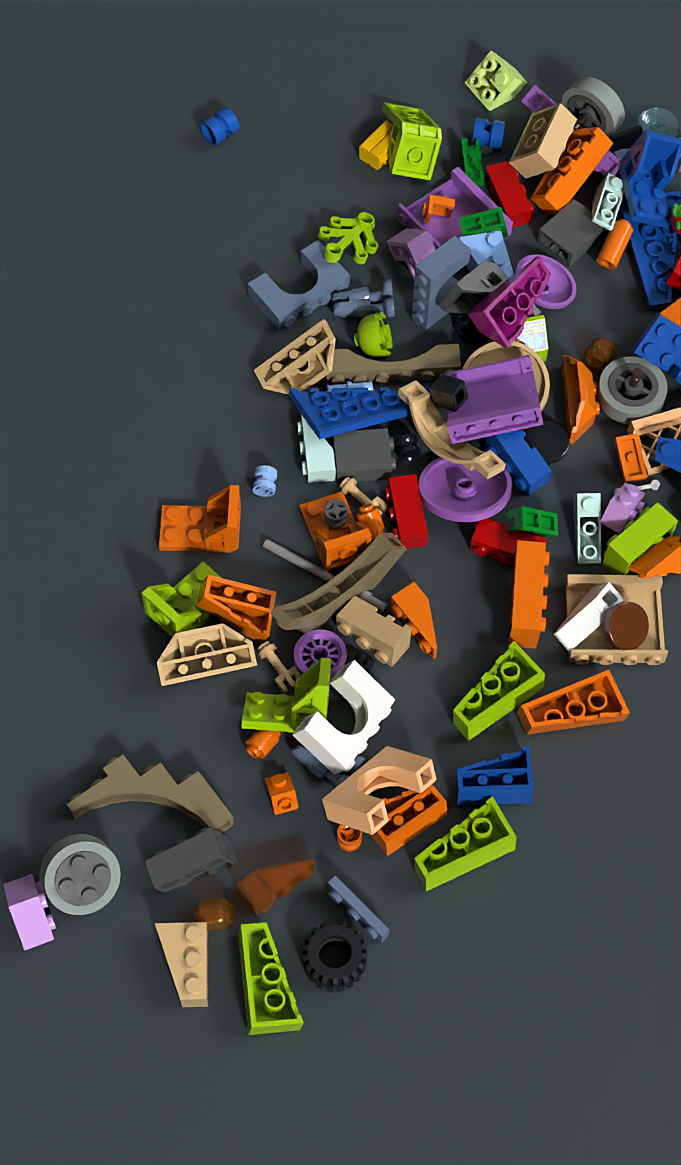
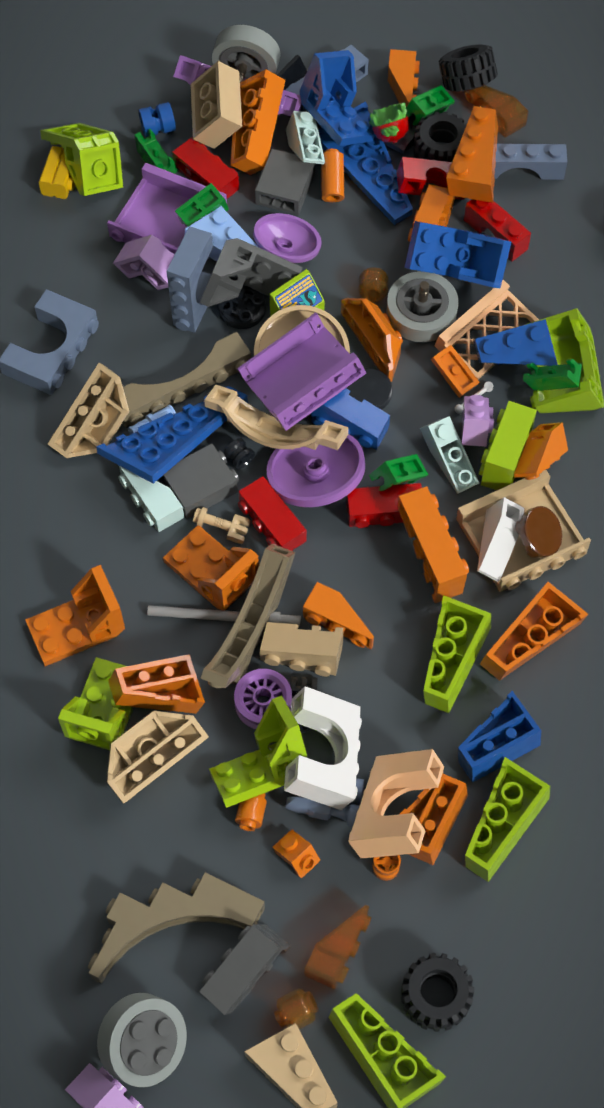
camera: 25 degrees left, 0 degrees up
(264, 482) = (116, 548): light blue wheel -> none
(267, 650) = (238, 733): tan hinge -> none
(336, 508) = (207, 544): dark grey wheel -> none
(357, 302) = (116, 333): sand blue piece -> none
(357, 910) = (433, 934): sand blue plate -> none
(362, 223) = (80, 255): lime plant -> none
(371, 517) = (241, 537): orange brick -> none
(374, 336) = (149, 360): lime cylinder -> none
(438, 206) = (146, 208): orange bracket -> none
(449, 392) = (255, 382): black brick -> none
(495, 81) = (136, 68): yellowish green slope -> none
(509, 305) = (270, 277): magenta wedge -> none
(660, 121) = (309, 43): clear light blue dish -> none

